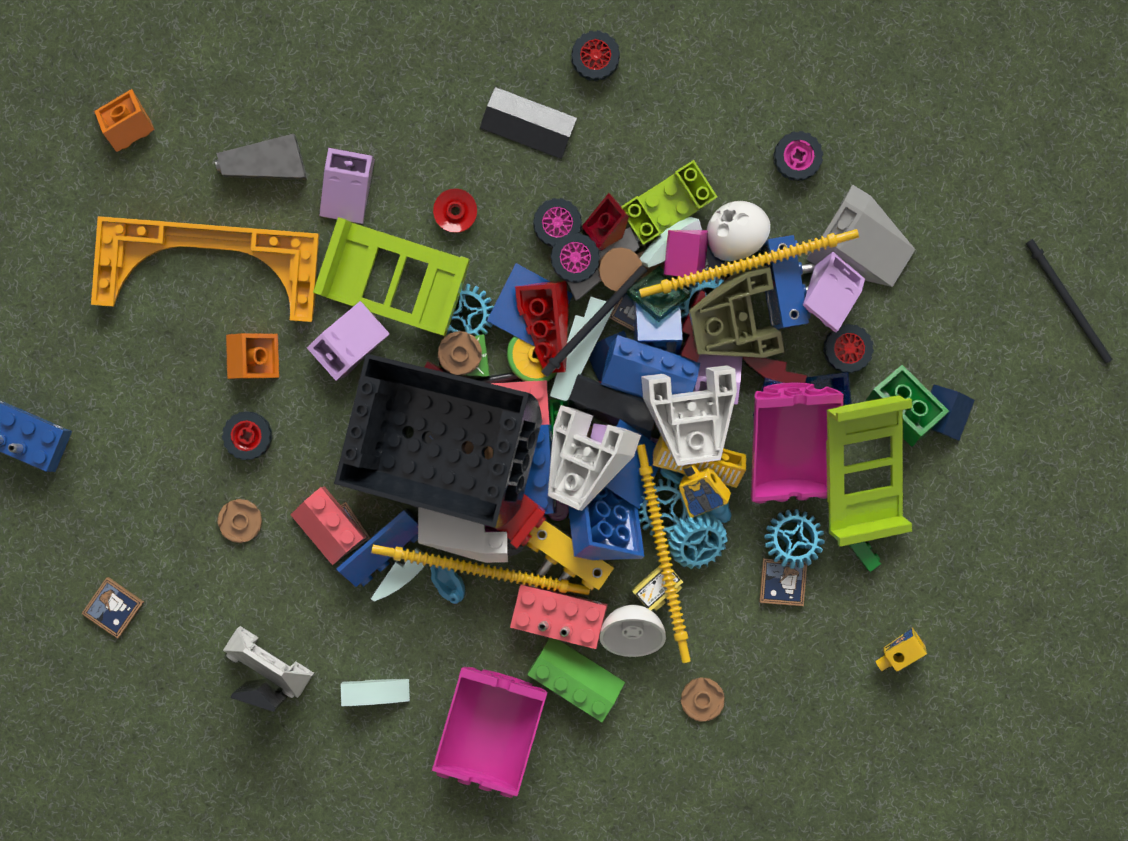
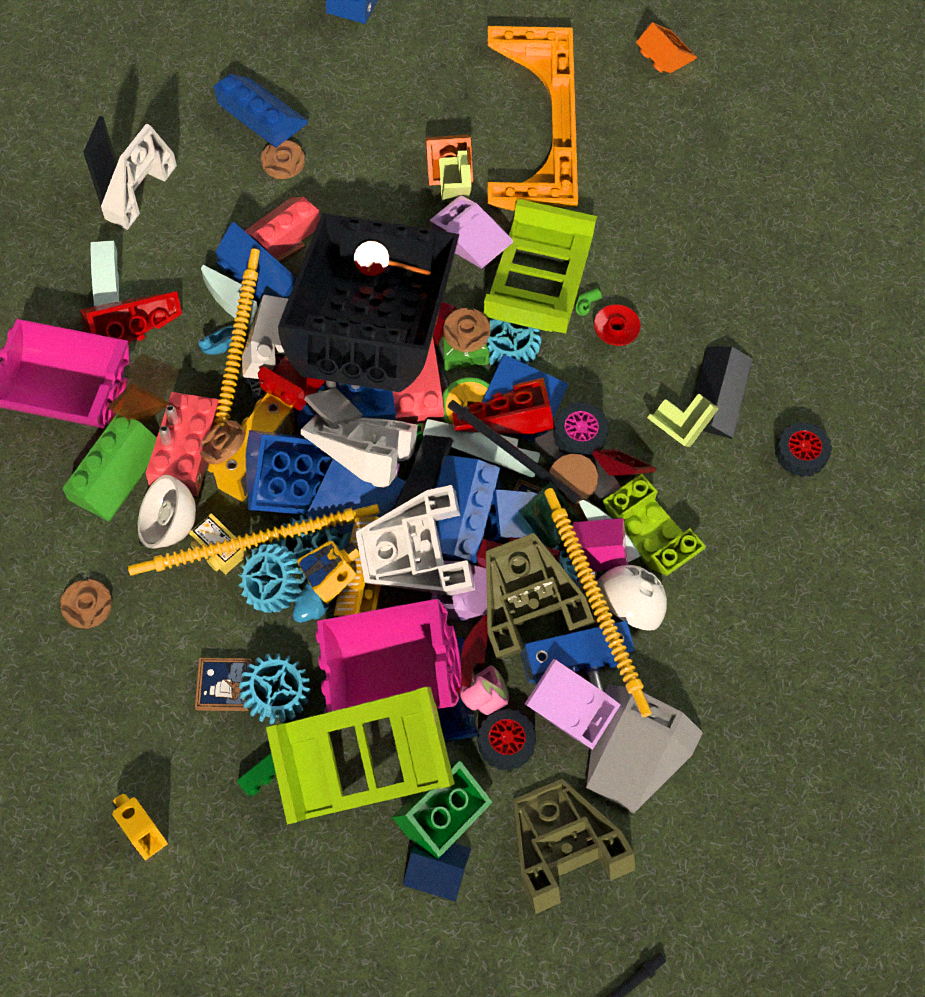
camera: 80 degrees right, 25 degrees down
(112, 607) = (195, 63): tile -> none
(180, 541) = (258, 109): none -> blue slope
(247, 435) = (359, 163): black wheel -> none
(266, 160) = (646, 161): flat silver slope -> none
(285, 352) = (455, 177): none -> yellowish green panel
(346, 185) = (631, 227): lavender slope -> none
(383, 435) = (372, 259): none -> piece
(424, 238) = (584, 301): none -> bright green arm
(424, 678) = (131, 317): none -> red wedge
(523, 659) = (137, 404): none -> clear orange slope
(547, 480) = (333, 406): none -> light grey piece
(555, 220) = (624, 421): wheel -> none
(567, 162) = (685, 425): none -> yellowish green panel
(574, 580) = (222, 442): none -> medium nougat tile
(798, 156) = (727, 667): black wheel -> none
(813, 358) = (487, 693): none -> bright pink animal
(928, 313) = (561, 834): none -> olive wedge

